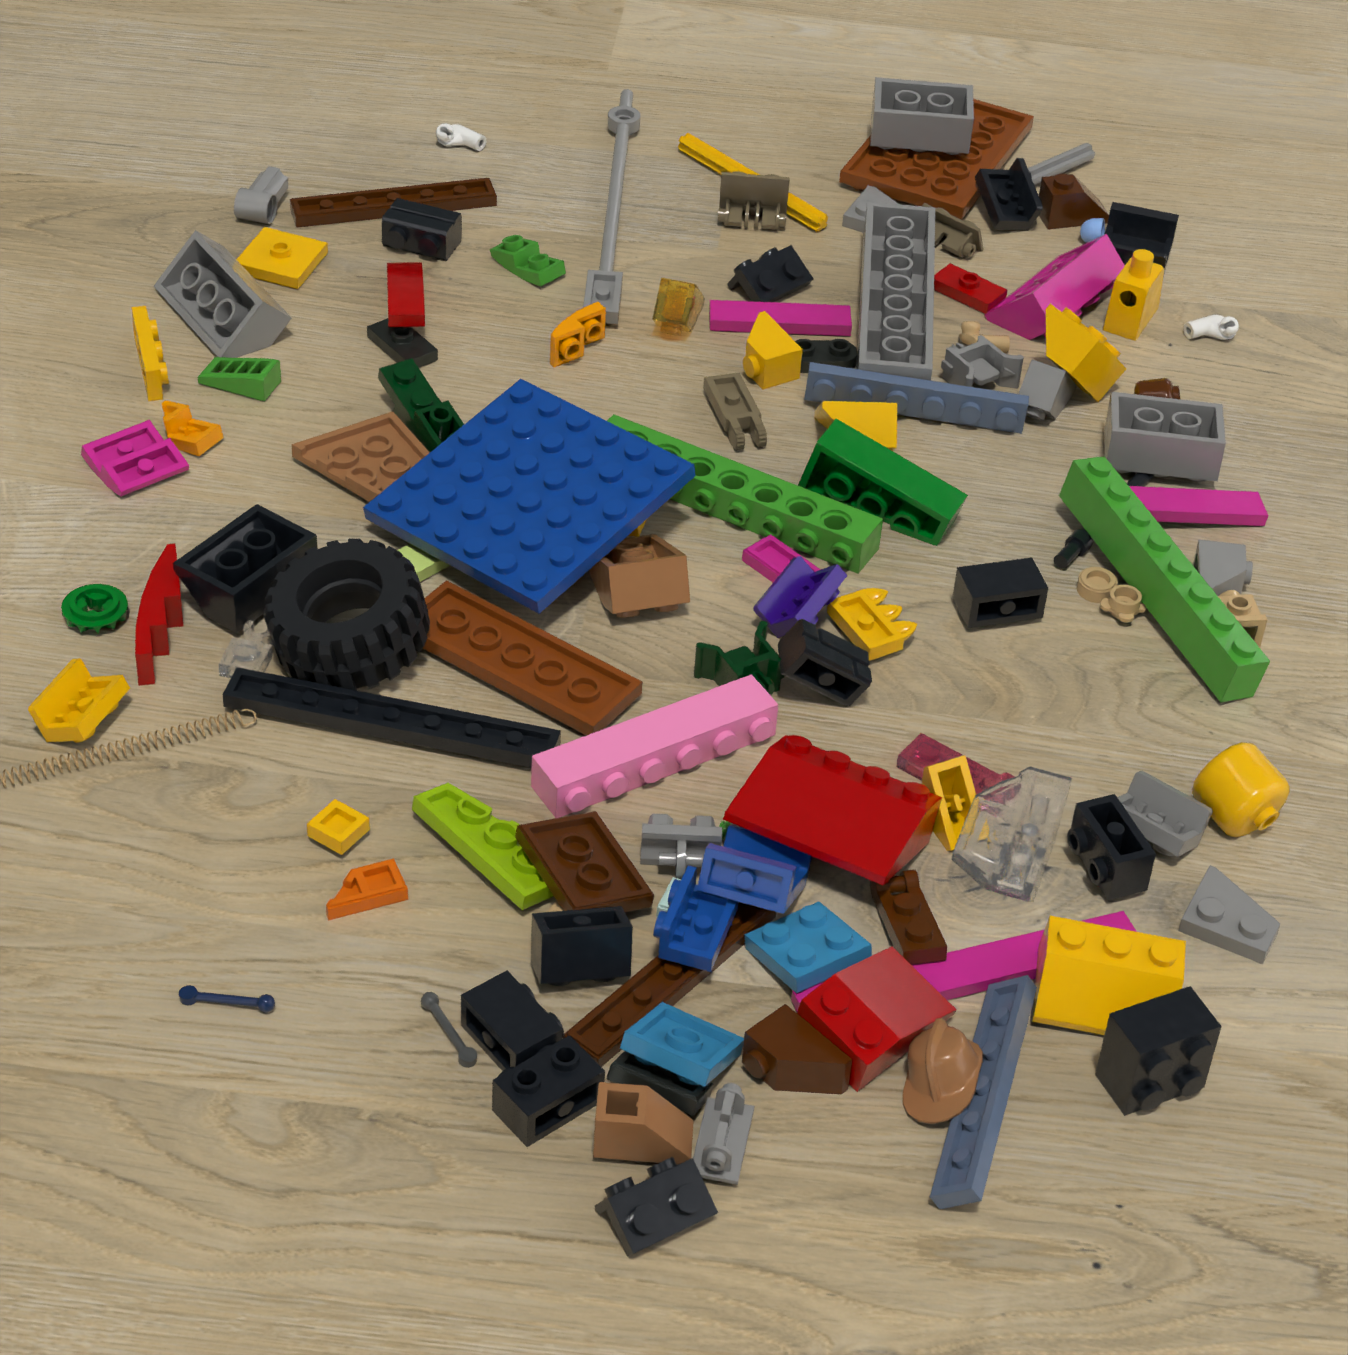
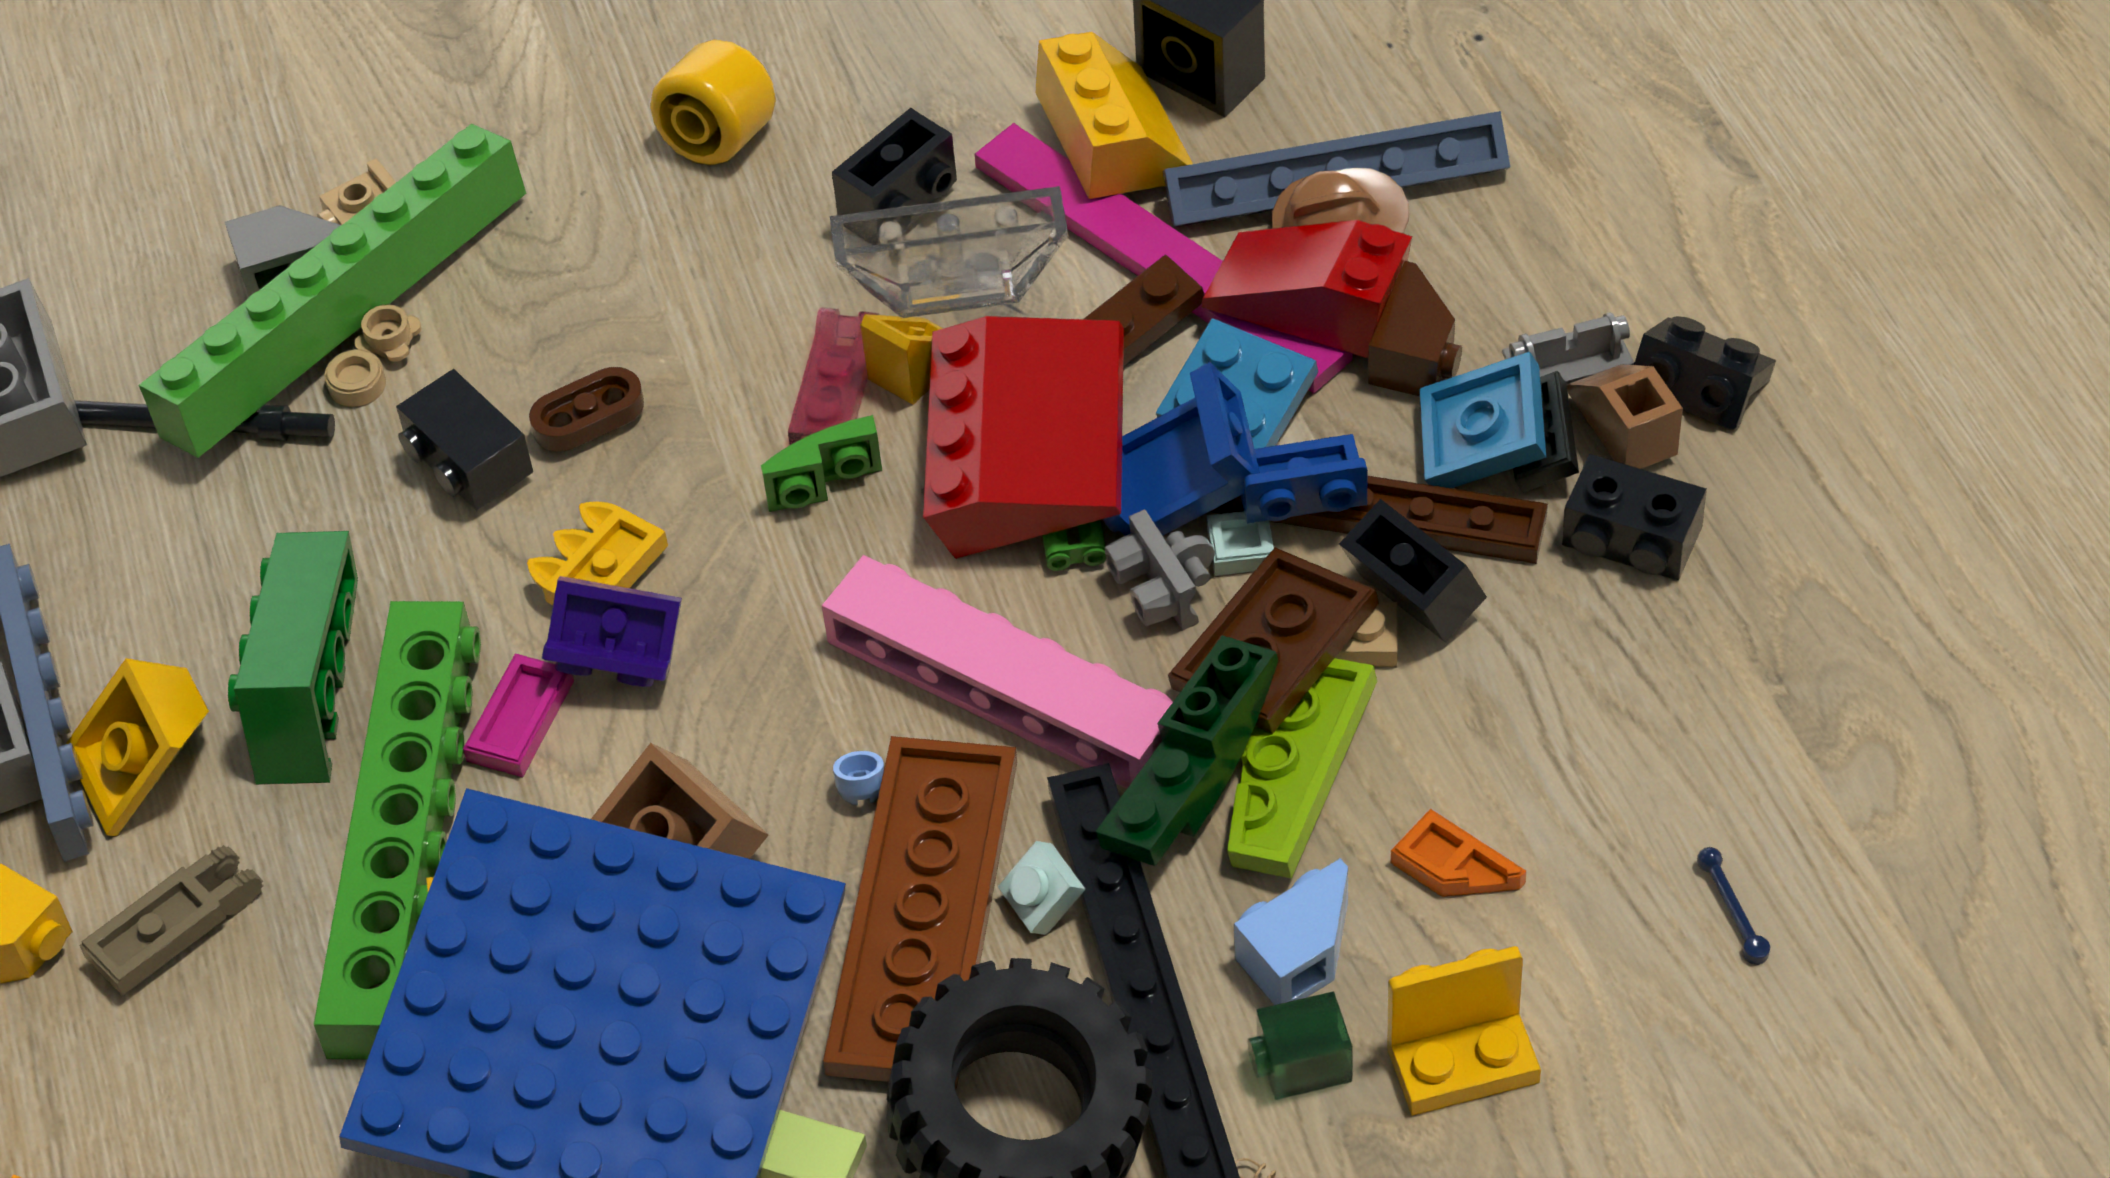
camera: 110 degrees left, 10 degrees up
(239, 820) = (1460, 1030): none -> yellow bracket
(294, 759) = (1302, 1046): none -> clear green brick
(338, 826) = (1383, 934): yellow plate -> none
(365, 783) = (1295, 938): none -> light blue slope
(467, 1055) = (1626, 635): dark grey hinge -> none
(489, 700) = (1041, 887): none -> light aqua plate
(508, 1020) = (1569, 592): black brick -> none
(514, 783) = (1198, 752): none -> dark green slope
(629, 661) = (858, 776): none -> light blue hinge
(740, 662) = (777, 644): dark green piece -> none
(824, 662) = (743, 545): black brick -> none
(879, 729) = (838, 452): none -> bright green slope
(1000, 658) = (586, 409): none -> reddish brown plate
(1165, 814) = (795, 167): light grey bracket -> none
(1203, 505) = (119, 316): dark pink tile -> none
(1229, 918) = (911, 72): light grey wing -> none

